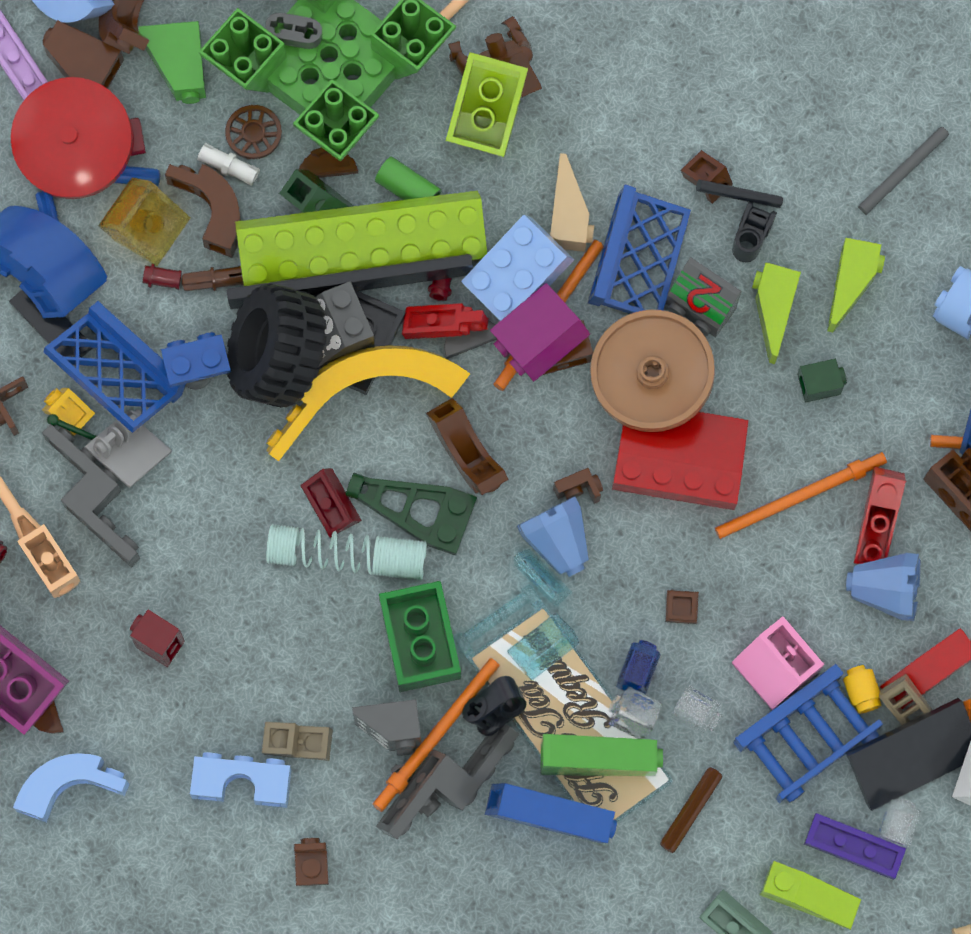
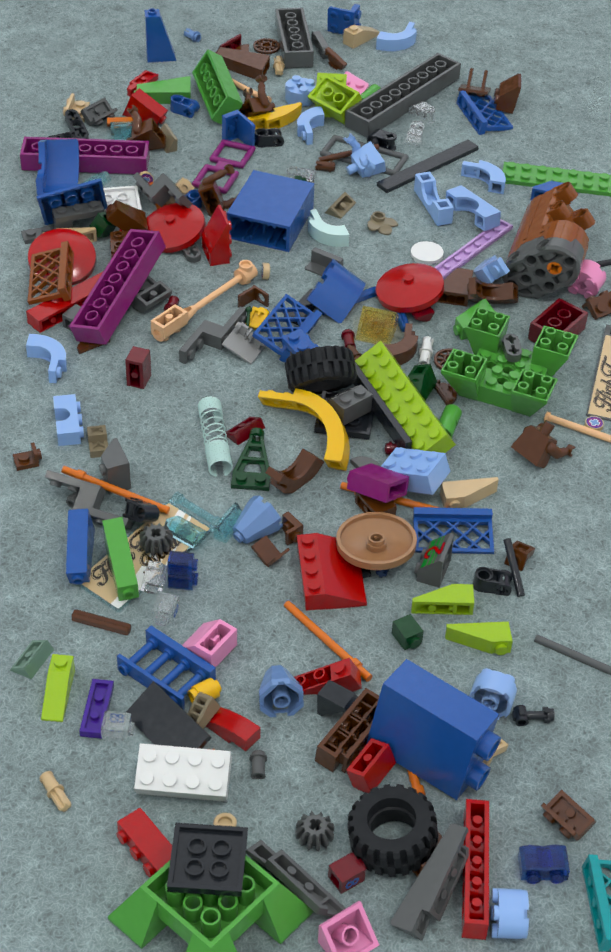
camera: 75 degrees right, 30 degrees down
(420, 636) = (173, 472): green brick -> none
(442, 321) = (369, 448): red hinge -> none
(487, 104) = (508, 436): lime slope -> none
(557, 704) = (156, 539): none -> dark grey gear
(619, 531) = (267, 551): none -> reddish brown bracket
(681, 607) = (232, 594): reddish brown tile -> none
(933, 513) = (334, 699): none -> black slope

